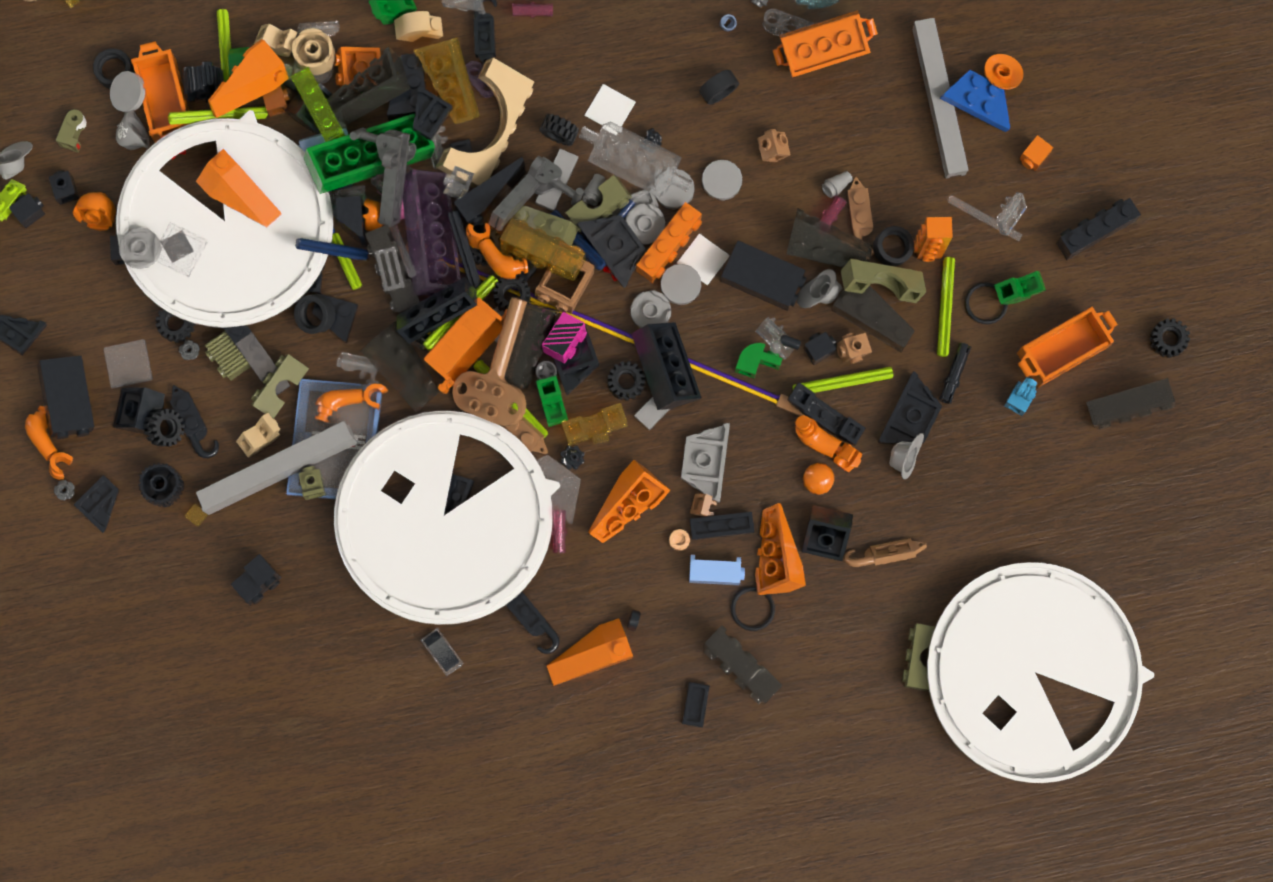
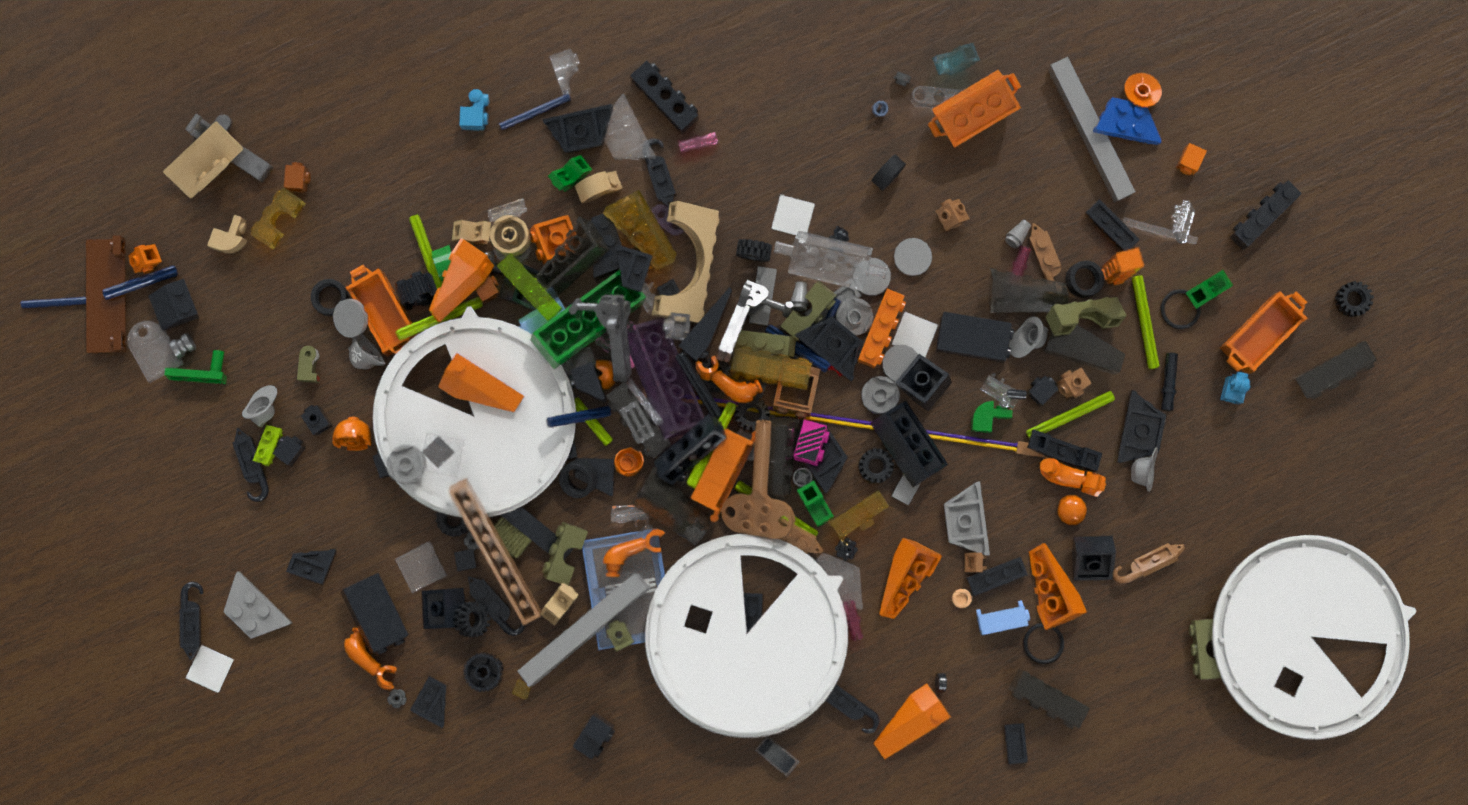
camera: 10 degrees left, 5 degrees up
(175, 368) = (465, 560): none -> black tile
(206, 361) = (494, 551): none -> medium nougat brick
(371, 311) = (629, 462): none -> orange hair
(699, 307) = (924, 382): none -> black slope
(935, 197) = (1112, 226): none -> black plate

